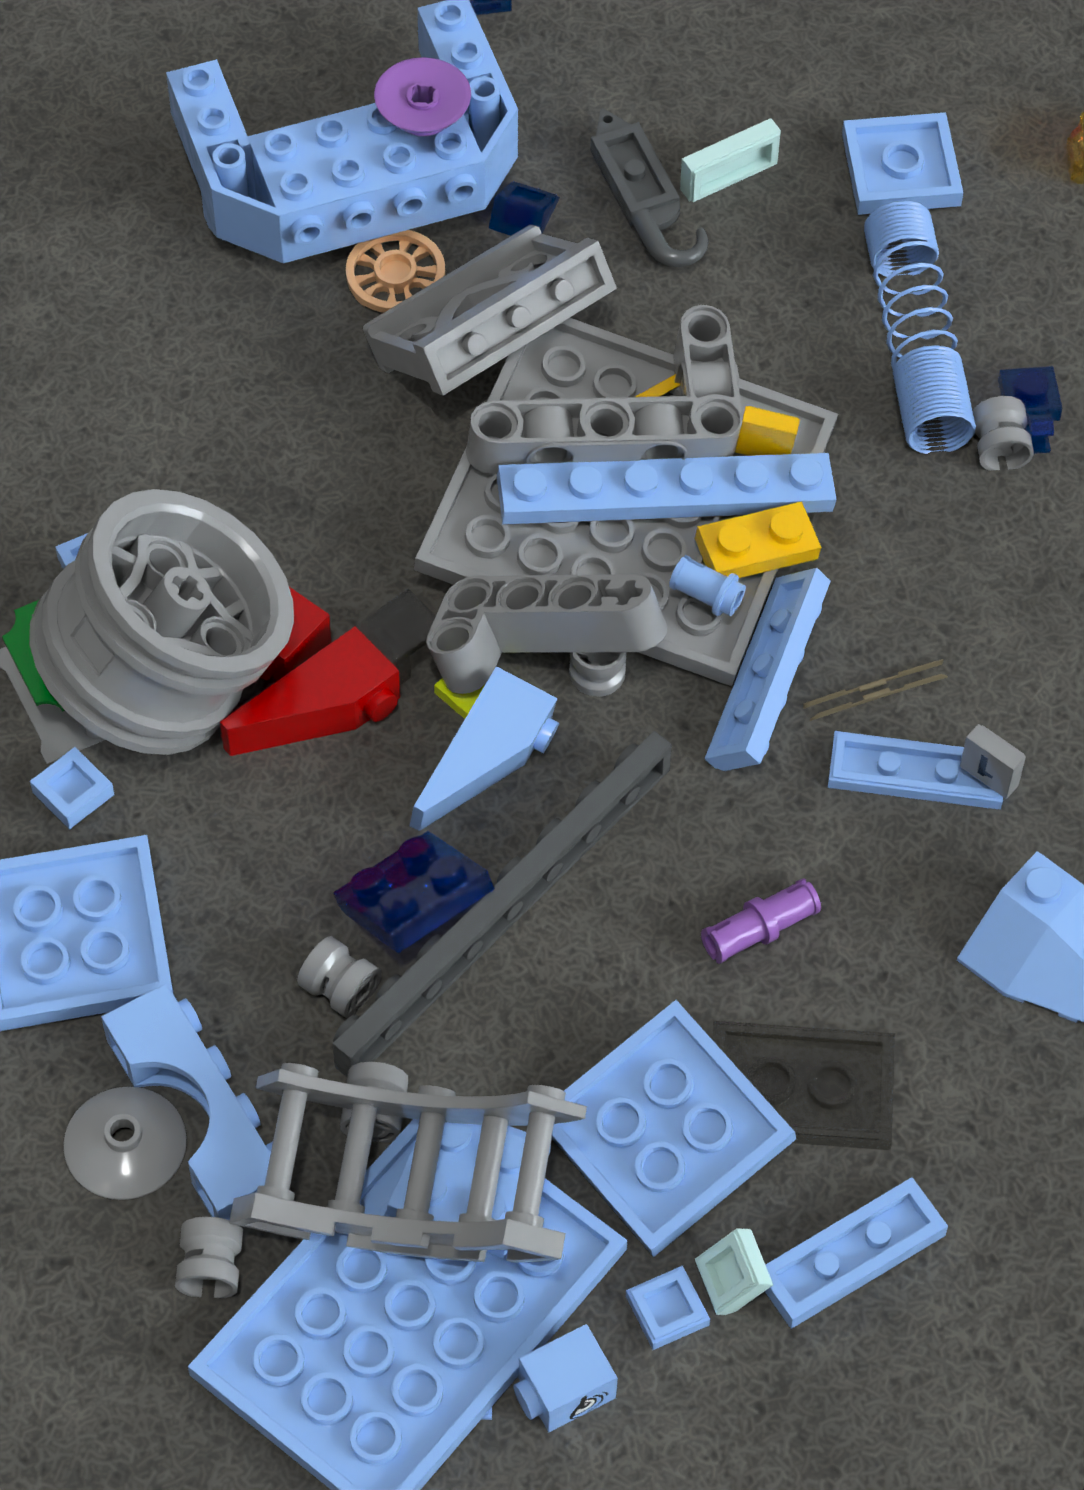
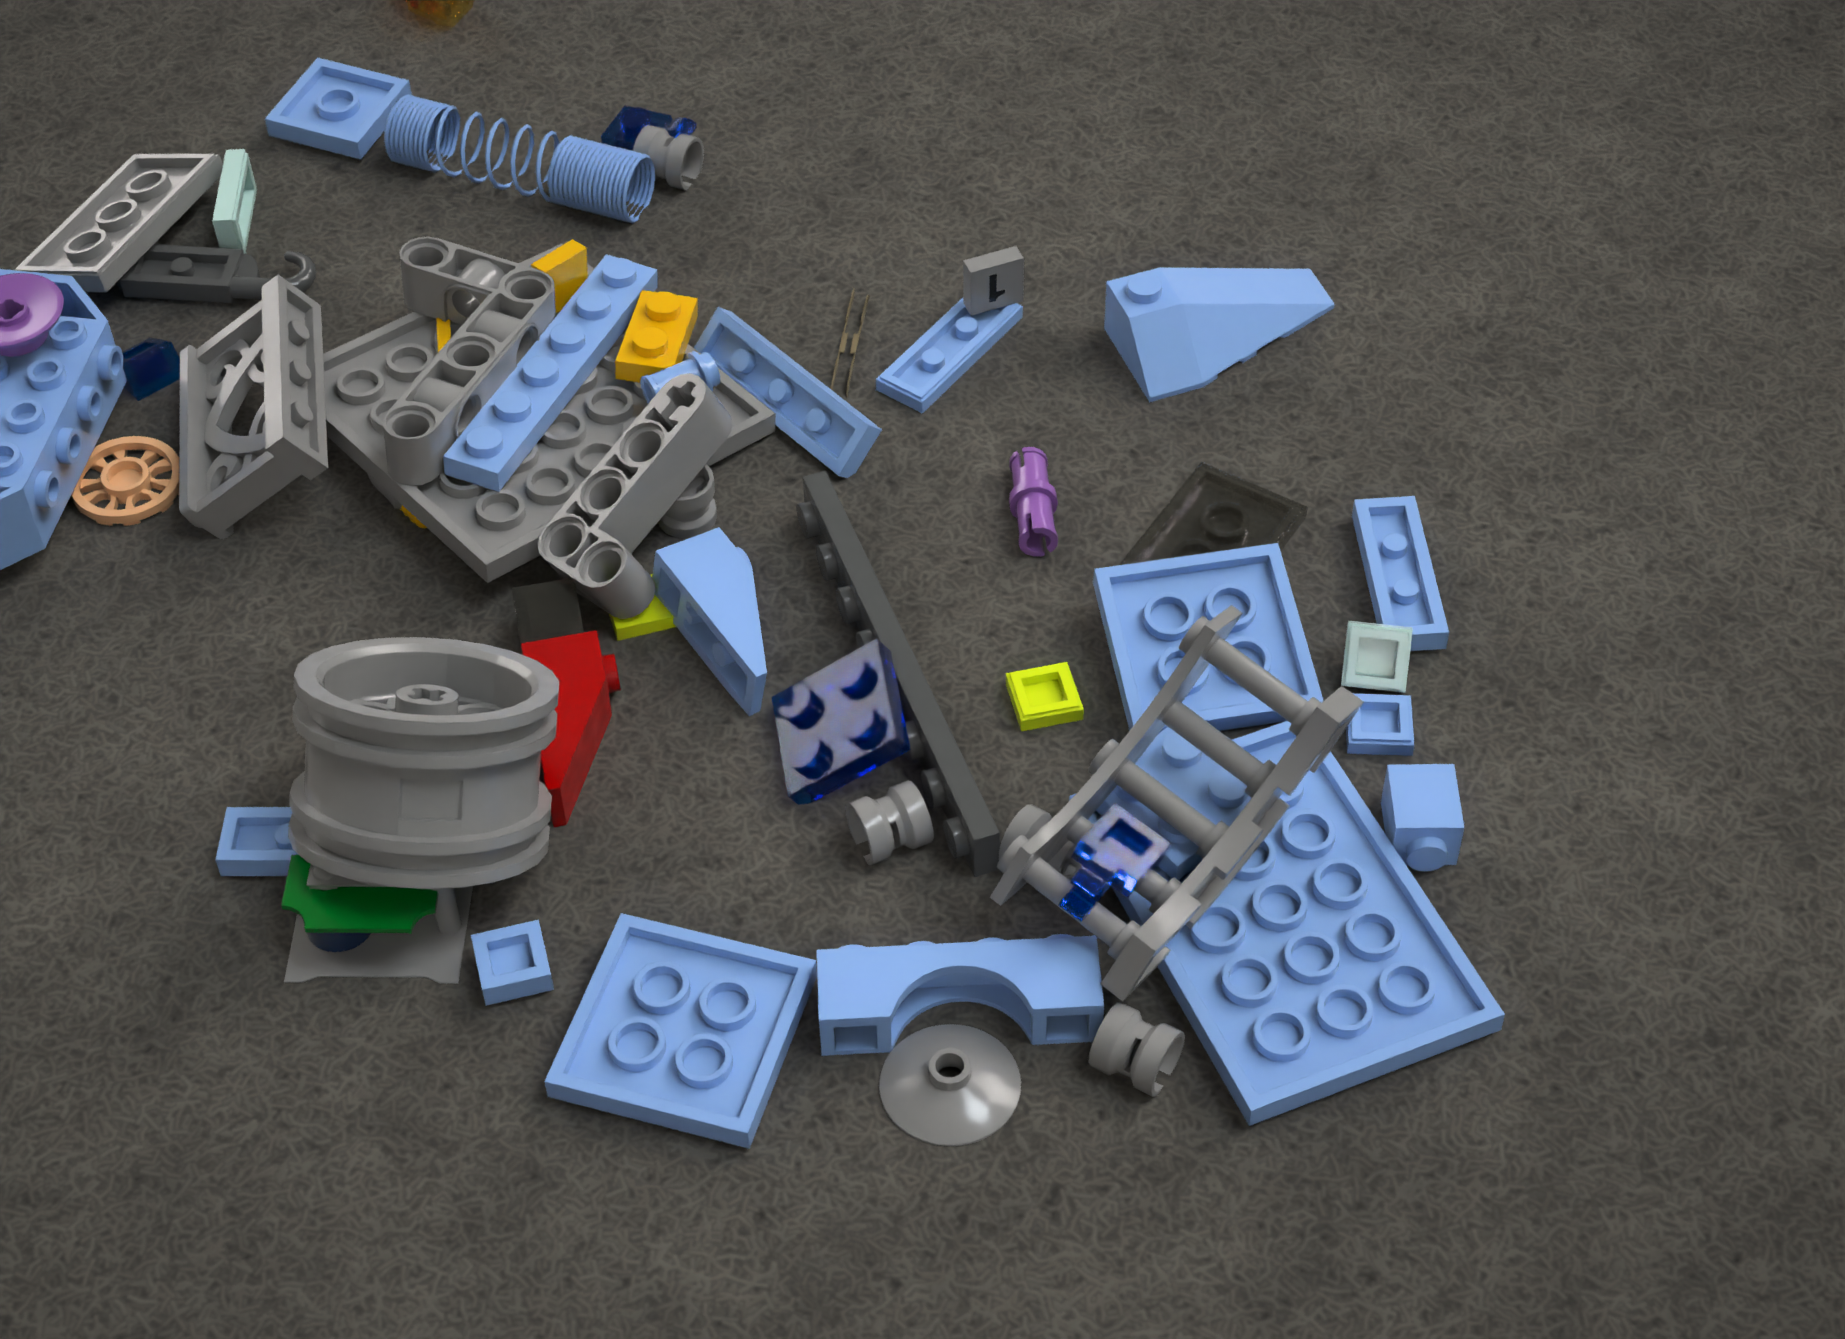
camera: 60 degrees left, 10 degrees down
(331, 1146) = (1113, 853): none -> clear blue plate
(549, 1031) = (1044, 696): none -> neon yellow tile
(655, 97) = (124, 218): none -> light grey tile

